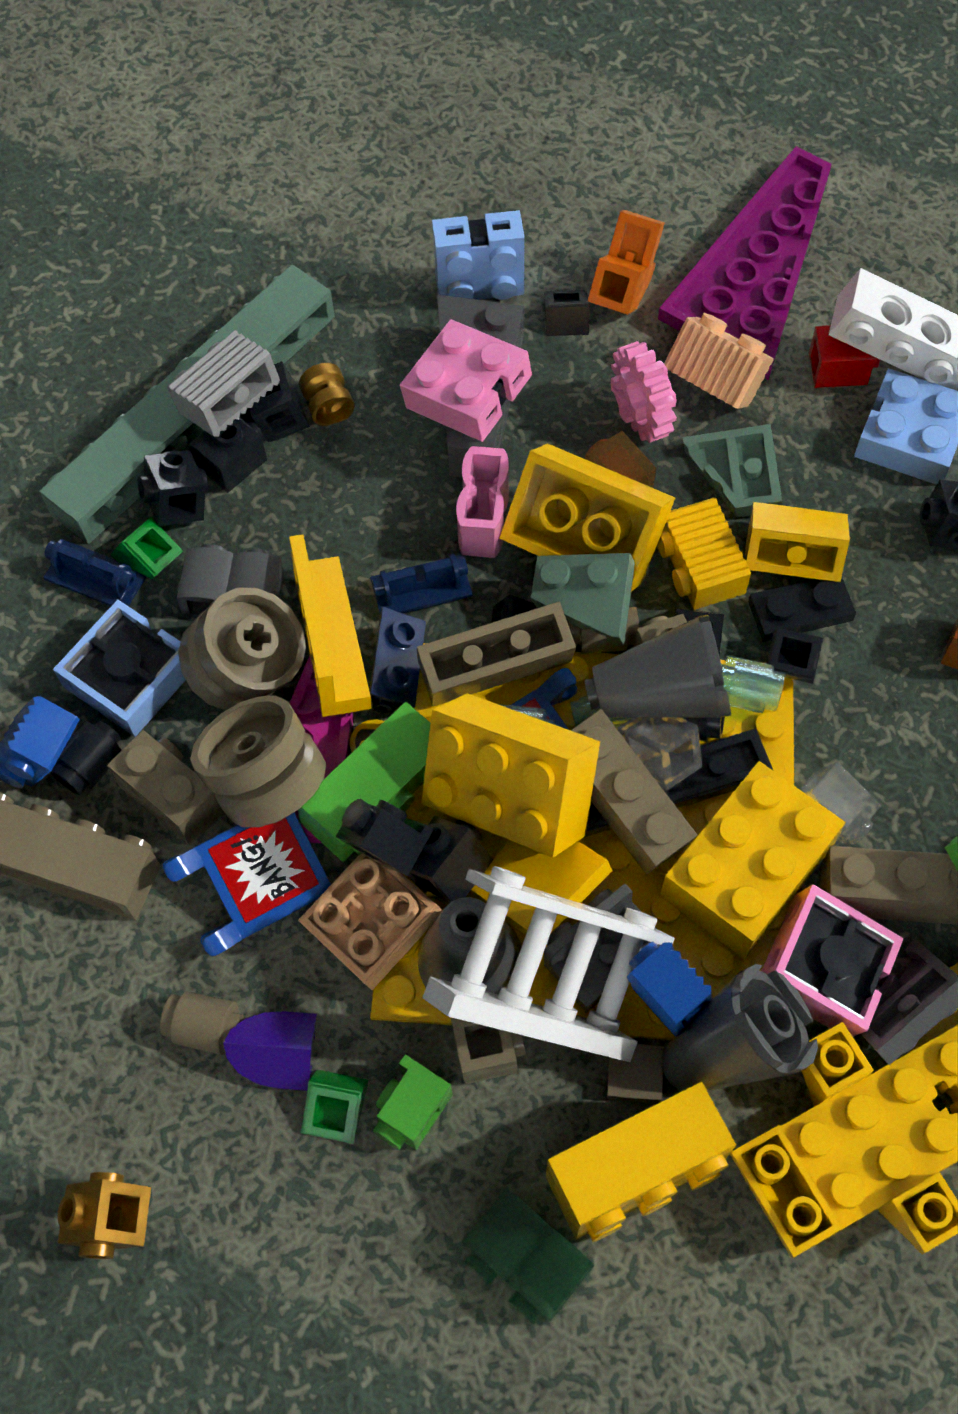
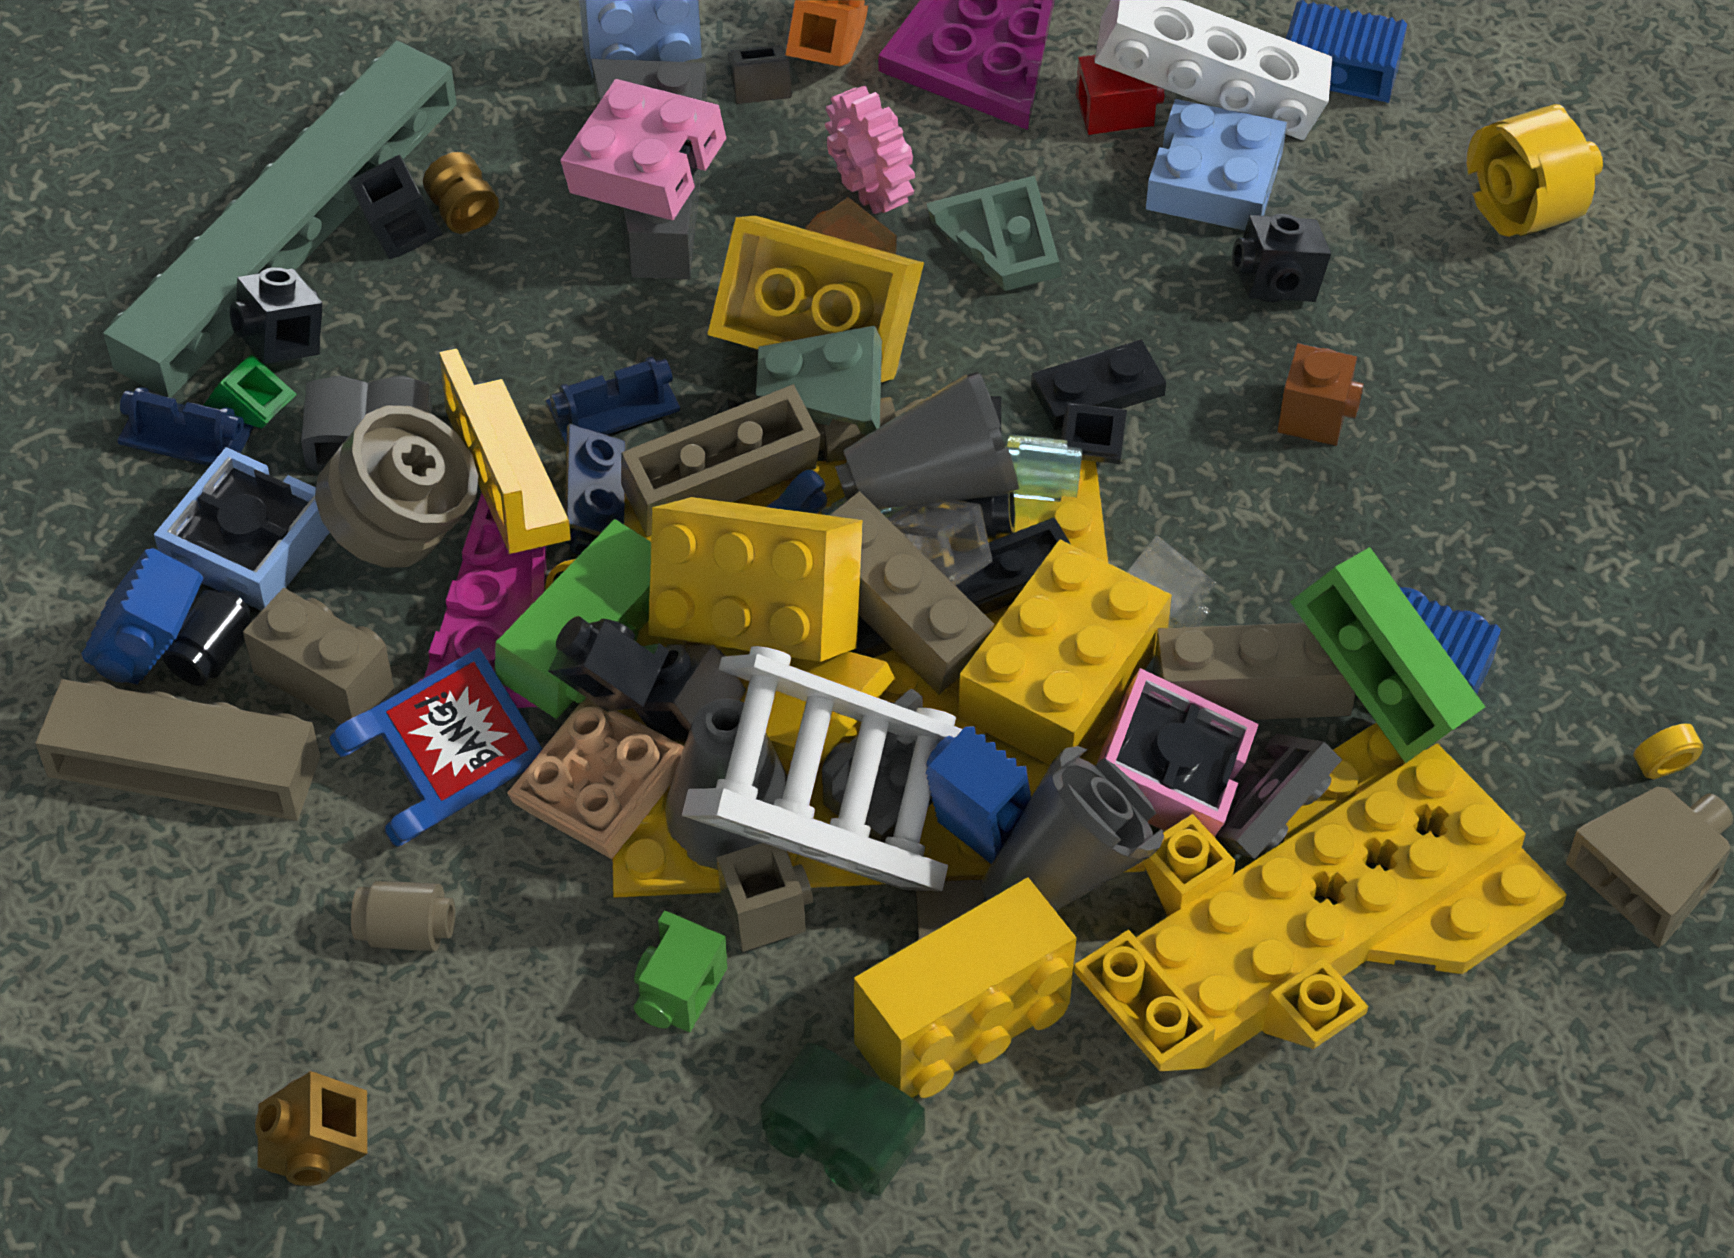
camera: 10 degrees left, 10 degrees down
(224, 383) = (331, 181): light grey brick -> none
(232, 454) = (344, 268): black brick -> none
(258, 761) = (440, 599): dark tan wheel -> none
(273, 1049) = (497, 935): dark purple brick -> none
(333, 1106) = (580, 995): green slope -> none
(482, 501) = (681, 295): bright pink brick -> none
(703, 554) = (968, 329): yellow brick -> none
(719, 361) = (961, 109): light nougat brick -> none
(797, 541) = (1082, 305): yellow brick -> none

